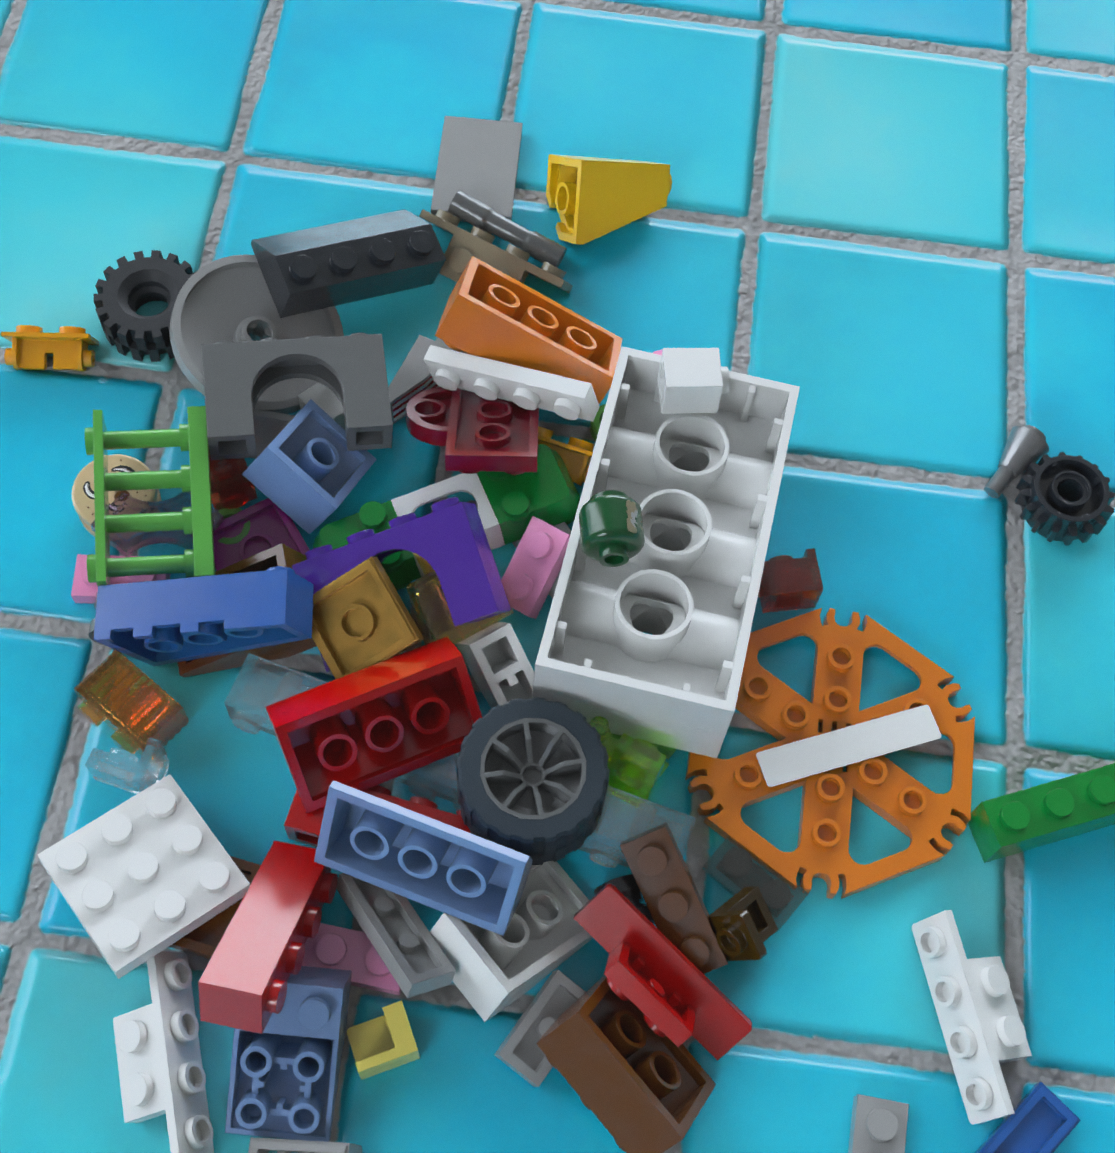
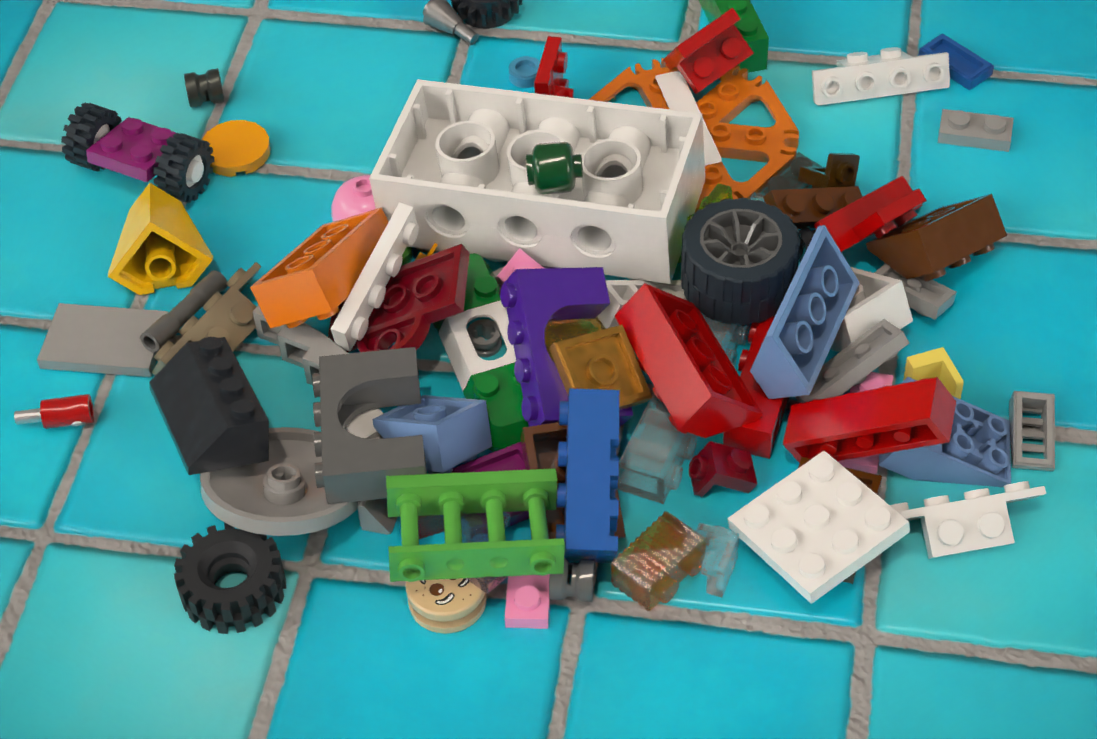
camera: 80 degrees left, 15 degrees down
(32, 346) = (261, 678): light orange hinge -> none
(259, 779) = (723, 467): none -> dark red bracket
(375, 145) = (59, 412): none -> red piece
(691, 380) = (417, 126): white brick -> none
(734, 156) = (138, 150): none -> plate
(770, 255) = (238, 147): none -> light orange tile
(860, 214) = (204, 87): none -> pearl dark grey wheel
(879, 569) = (551, 69): none -> red hinge
(936, 554) = (523, 71): none -> dark azure tile
(958, 763) = (710, 52): none -> red bracket

